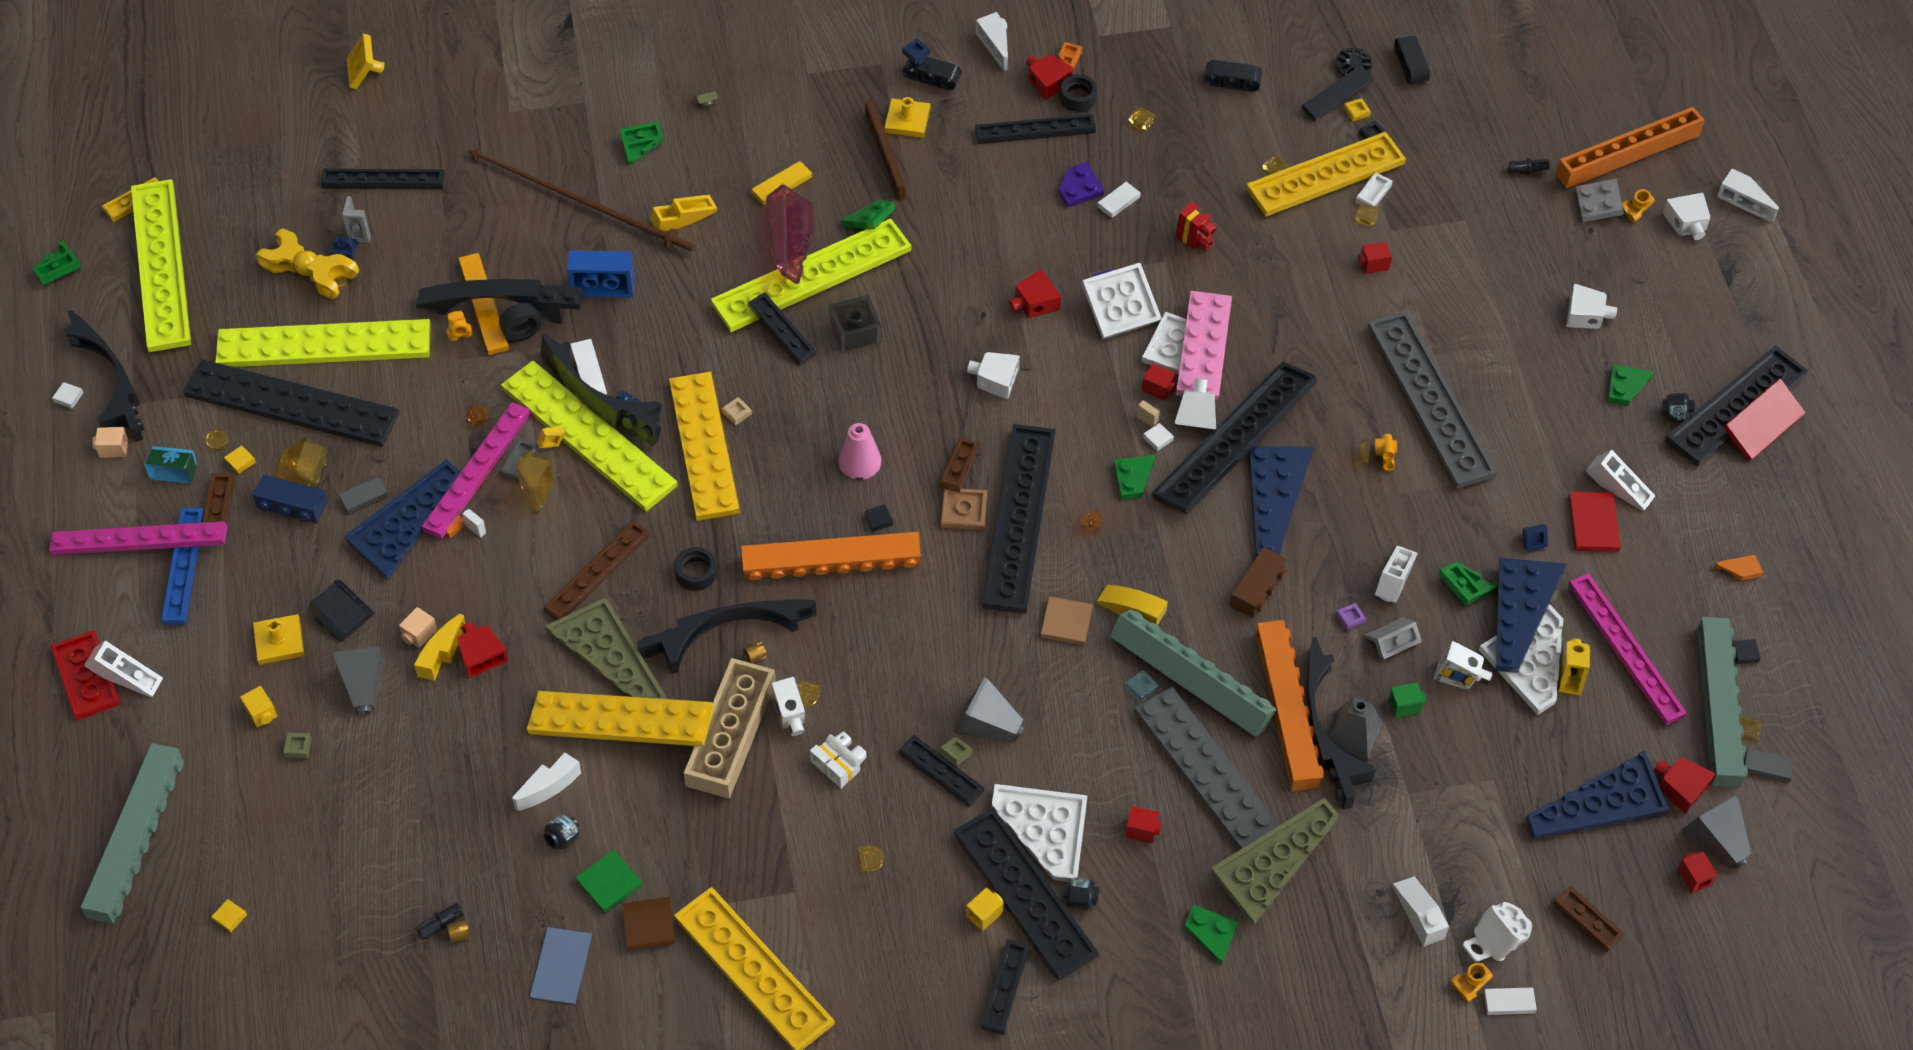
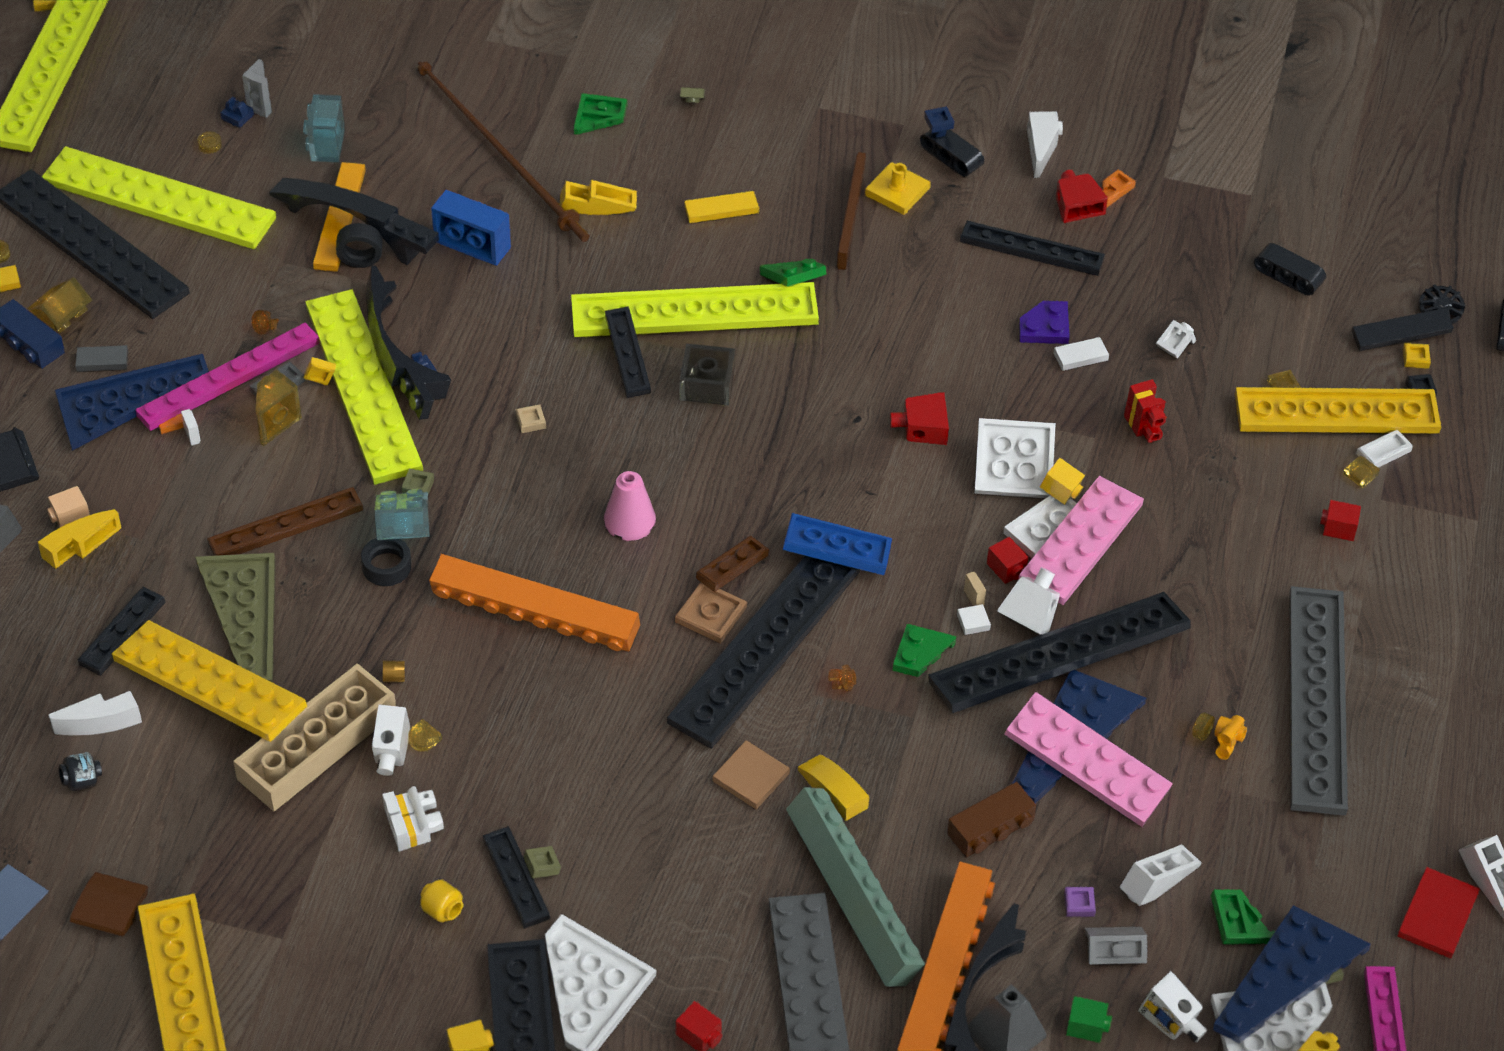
camera: 25 degrees right, 5 degrees down
(293, 258) = (195, 121): yellow piece -> none
(383, 178) = (318, 60): black tile -> none
(431, 234) = (325, 128): none -> clear light blue brick
(458, 326) = (296, 227): light orange plate -> none
(480, 649) = (115, 555): red torso -> none
(520, 708) = (126, 623): none -> black tile
(587, 364) = (401, 316): white slope -> none
(609, 881) = (97, 844): green tile -> none
(677, 641) = (319, 627): black slope -> none
(682, 497) = (418, 480): none -> olive plate
(691, 527) = (402, 515): none -> clear light blue brick
(704, 446) = (475, 440): yellow plate -> none
(789, 230) = (695, 256): clear pink wedge -> none
(870, 858) = (382, 937): clear yellow tile -> none
(878, 517) = (612, 585): black tile -> none
(900, 812) = (441, 901): none -> yellow head
(989, 715) = (598, 837): slope -> none
(996, 373) = (831, 483): white torso -> none
(1030, 418) = (837, 544): none -> blue tile
(1078, 104) = (1098, 239): black tyre -> none
(1142, 118) = (1159, 278): clear yellow tile -> none
(1142, 685) = (793, 878): clear light blue tile -> none
(1168, 305) = (1063, 481): none -> yellow brick
(1182, 161) = (1176, 338): none -> white bracket
(1301, 509) = (1088, 759): none -> bright pink plate
(1535, 537) = (1352, 900): dark blue tile -> none

